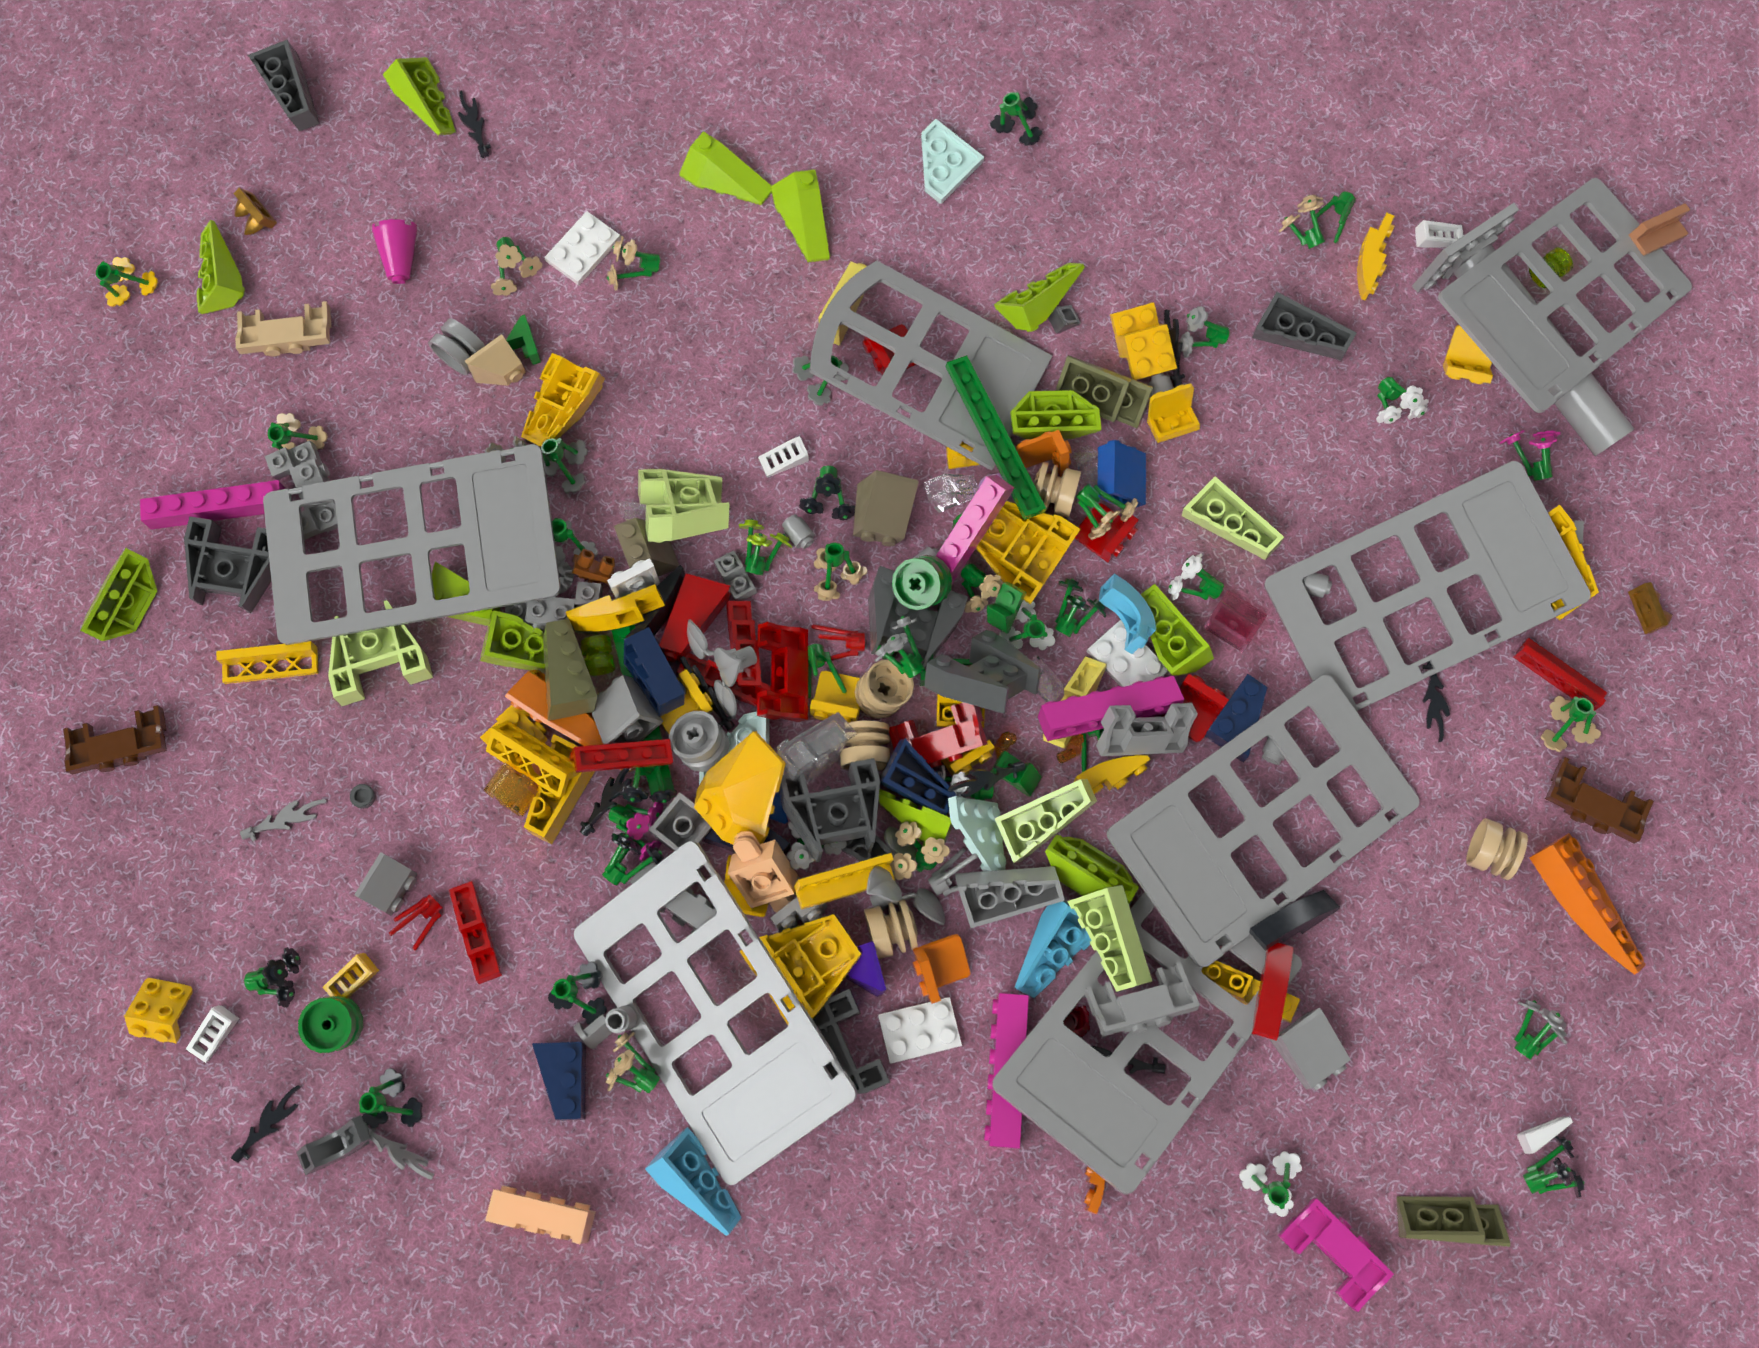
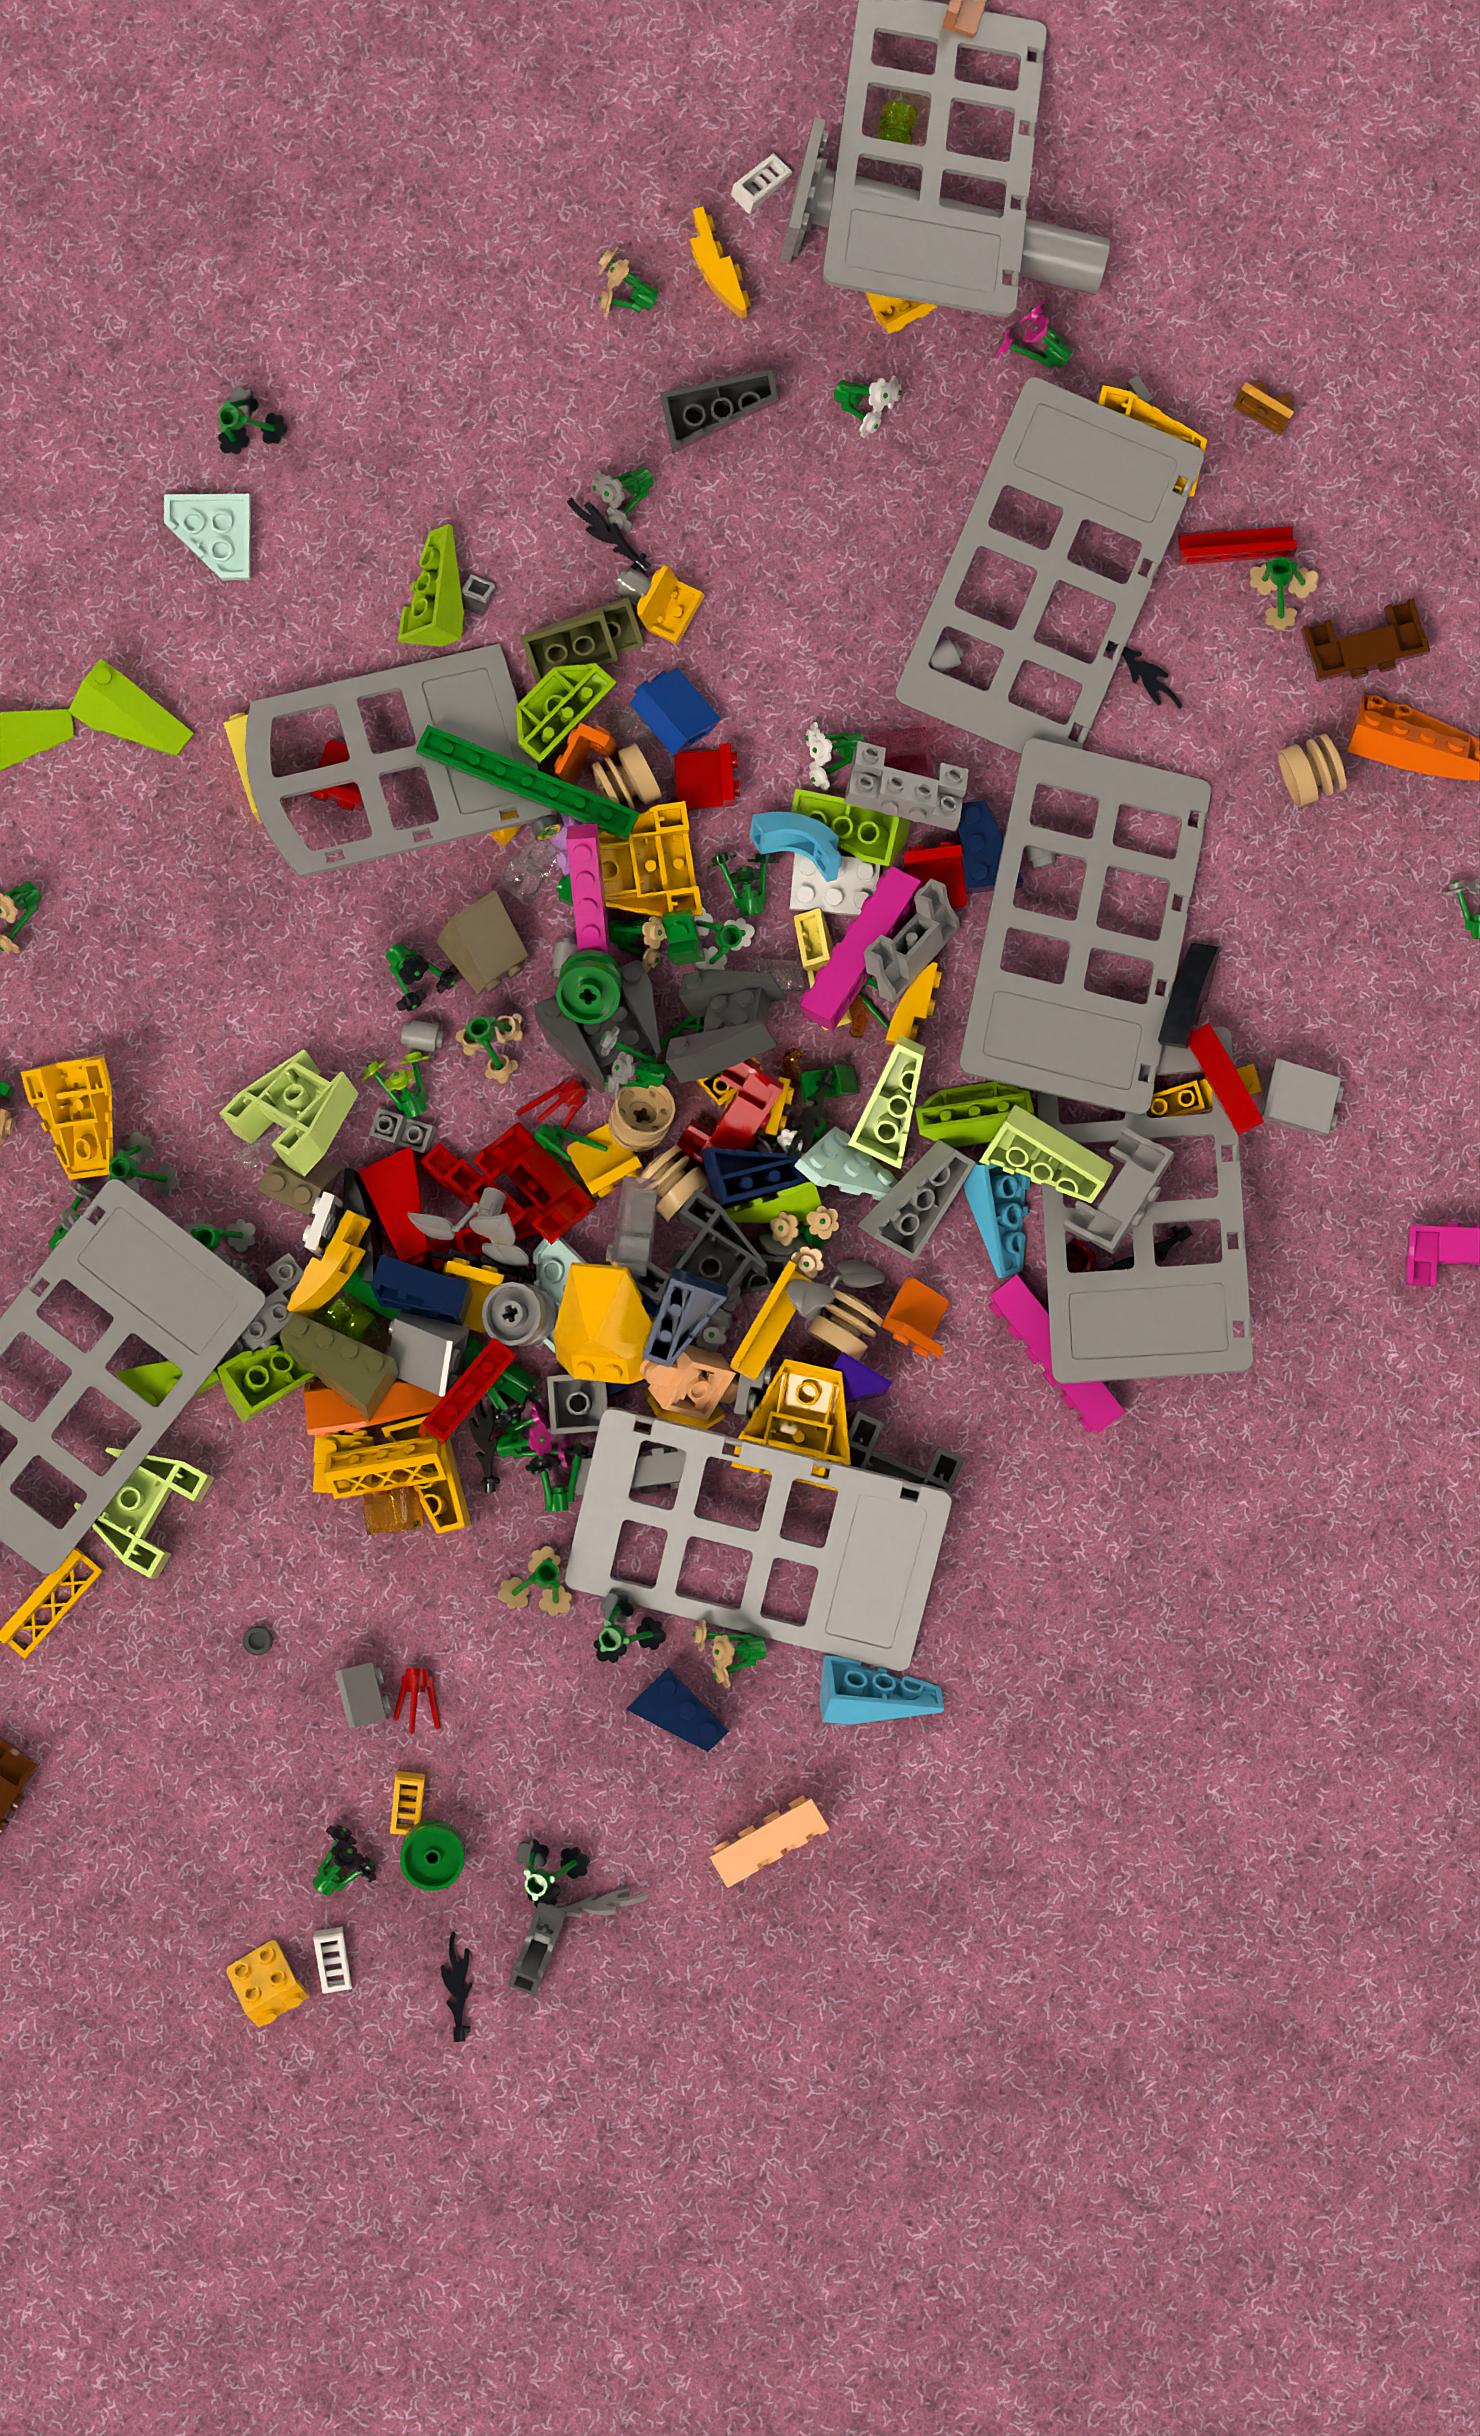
camera: 35 degrees left, 10 degrees up
(286, 815) = (205, 1720): light grey piece -> none
(475, 932) = (479, 1663): red slope -> none
(565, 910) = (544, 1575): none -> tan plant
(593, 570) = (267, 1245): dark orange hips -> none
(594, 1033) = (669, 1651): light grey tile -> none
(621, 1019) = (679, 1625): light grey brick -> none
(792, 820) = (680, 1314): none -> wedge
(795, 460) = (329, 971): white slope -> none
(819, 392) = (276, 870): light grey plant -> none
(919, 1030) = (948, 1390): white plate -> none
(940, 879) = (850, 1242): light grey plant -> none
(980, 472) = (546, 828): none -> dark grey tile
(1089, 497) = (668, 765): plant -> none
(1094, 1197) = (1224, 1395): orange slope -> none
(1143, 341) = (576, 555): yellow bracket -> none
(1222, 638) = (905, 793): none -> light grey bracket
(1232, 519) = (810, 662): yellowish green wedge -> none
(1277, 1192) = (1374, 1250): white plant -> none
(1342, 206) = (643, 235): green plant -> none

